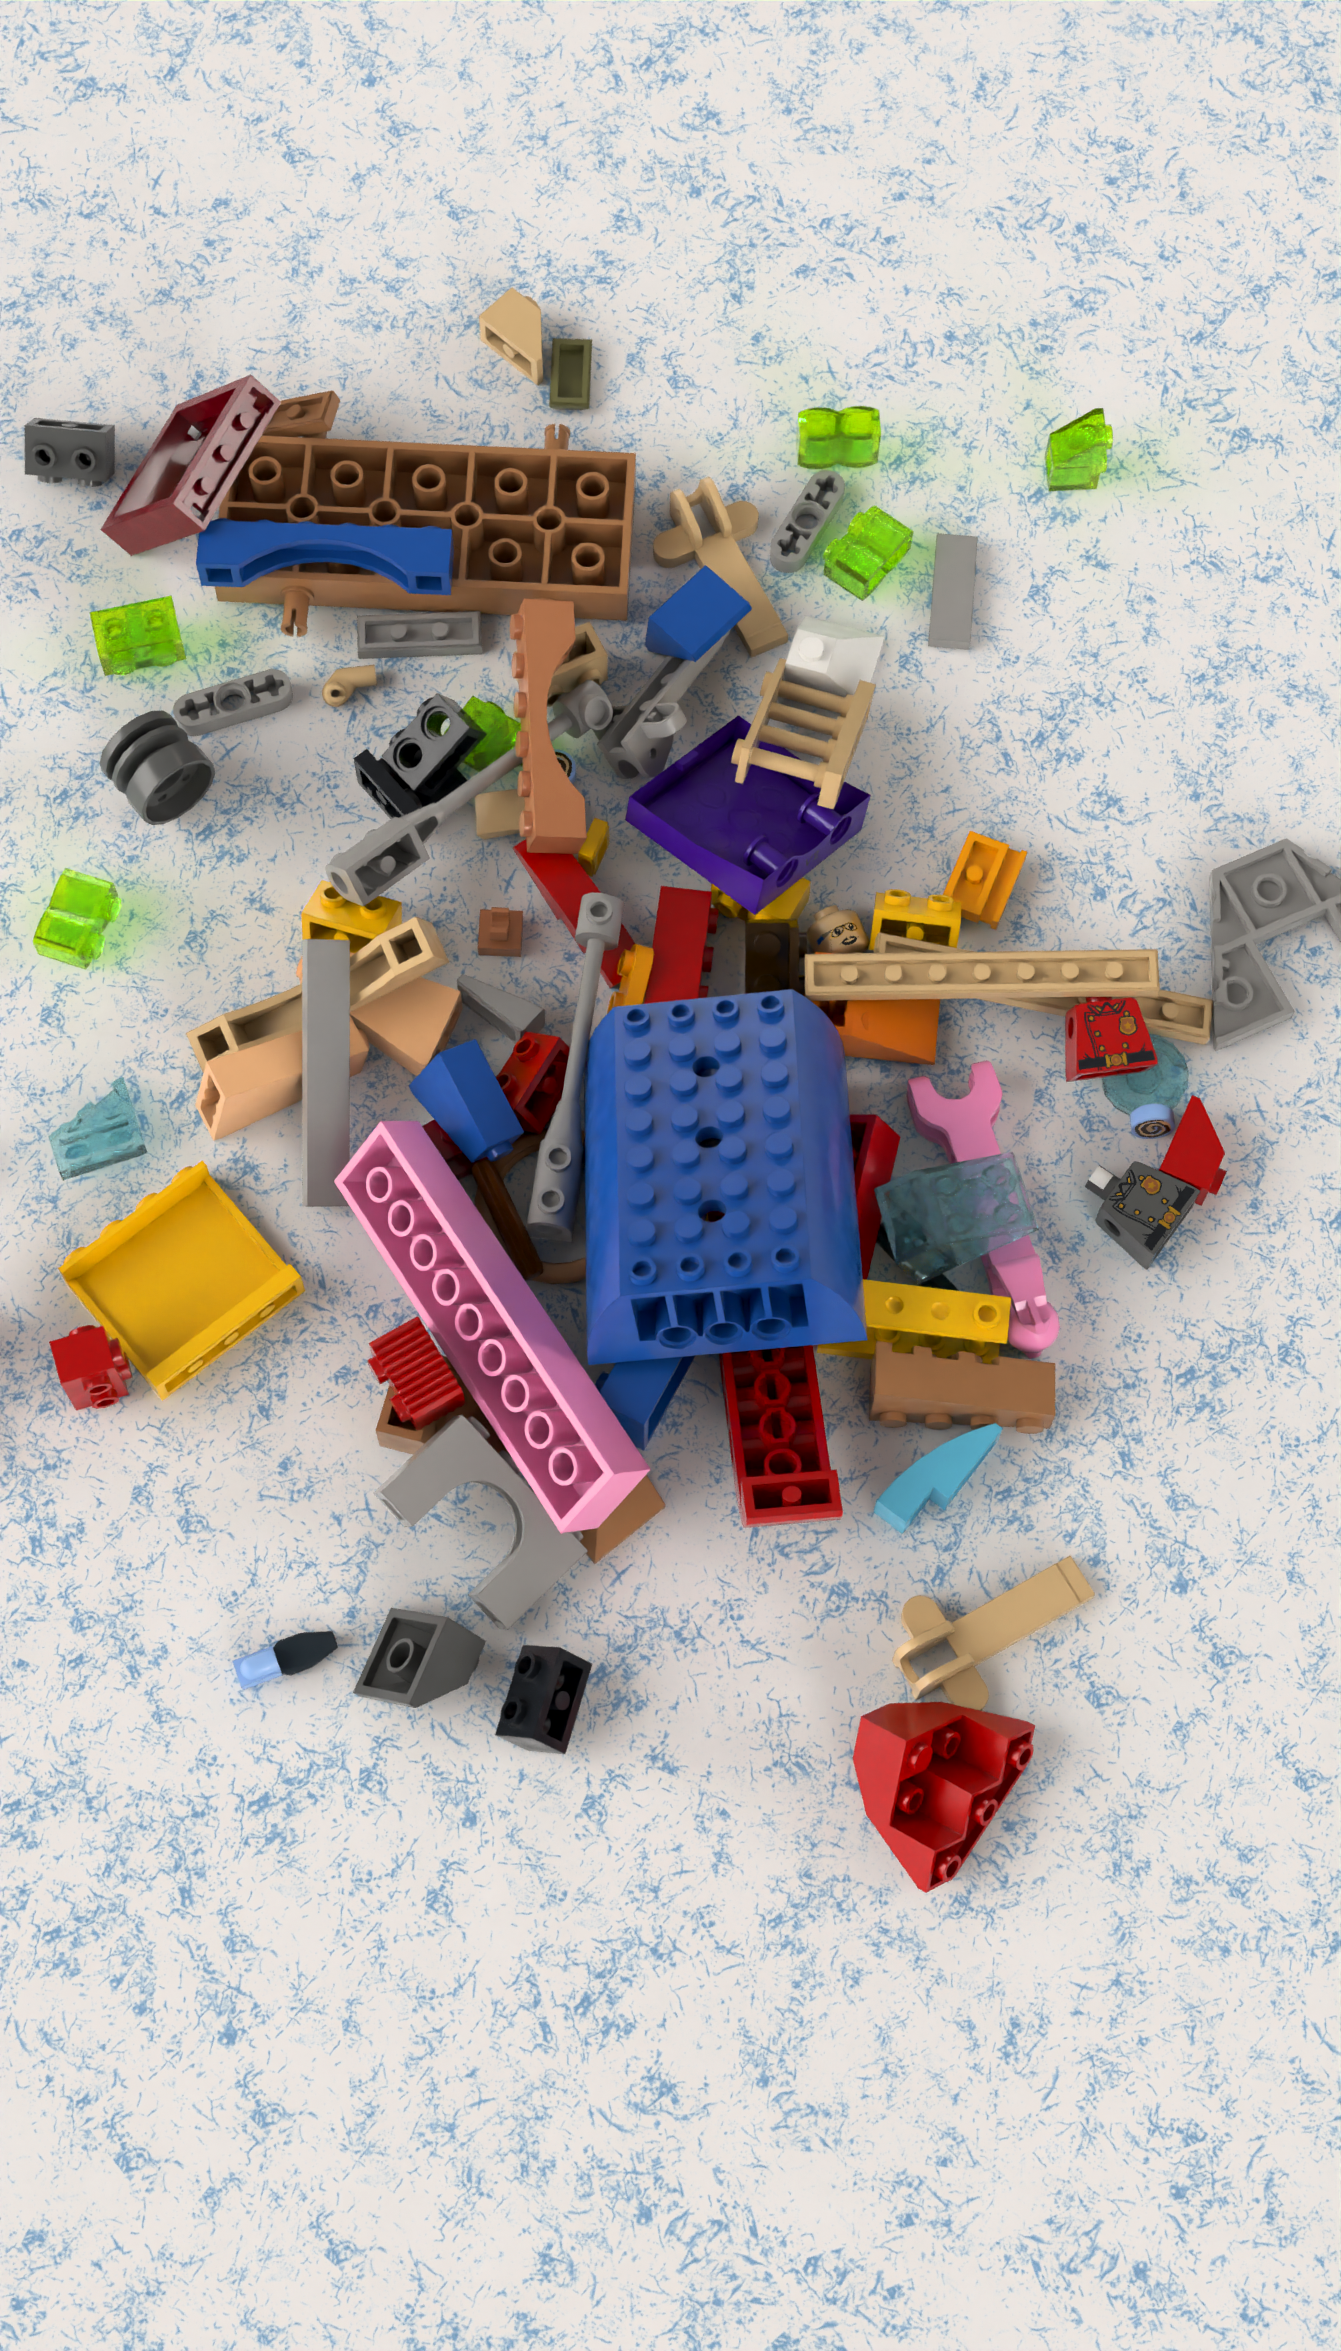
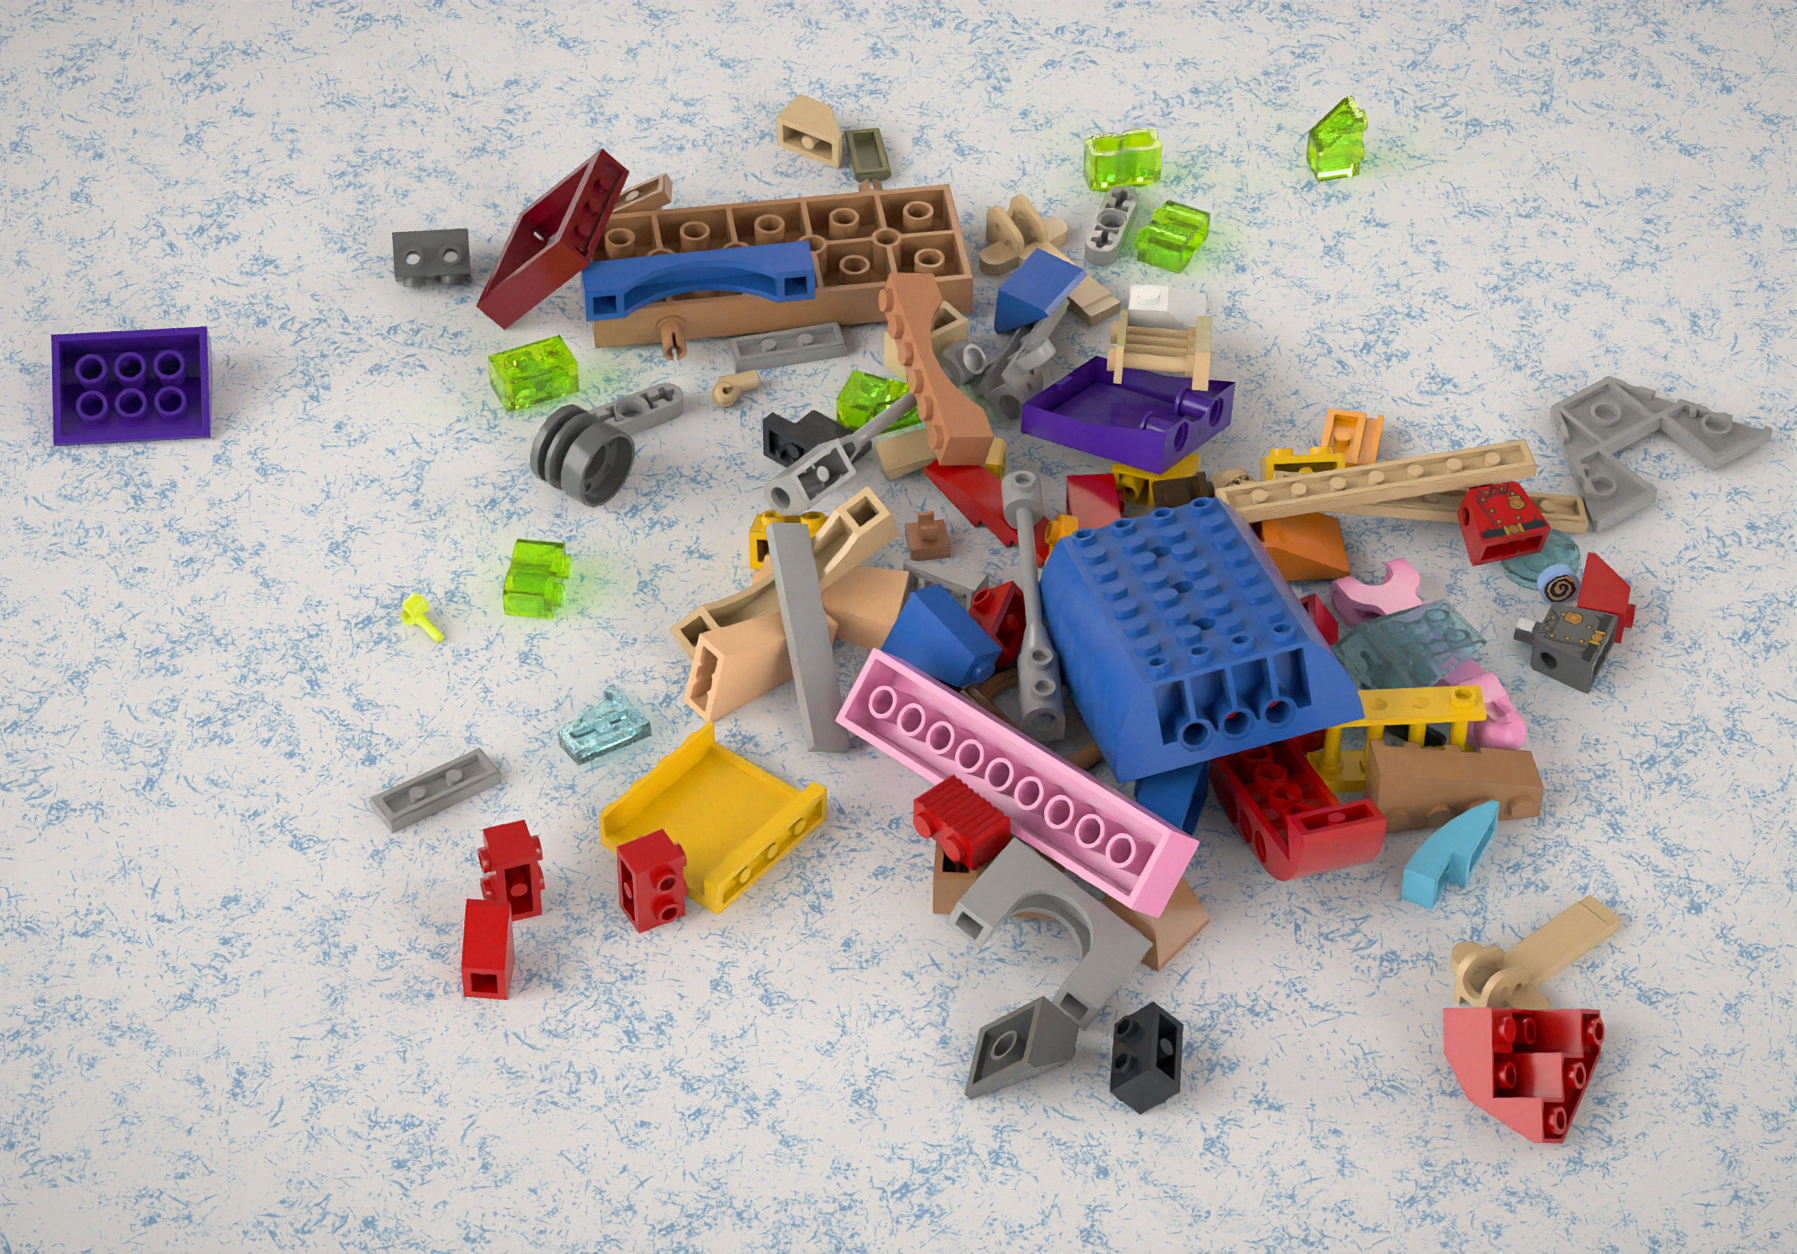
camera: 10 degrees left, 25 degrees down
(286, 1657) = (891, 1077): piece -> none
(439, 752) = (839, 405): black brick -> none
(953, 591) = (1256, 256): light grey tile -> none

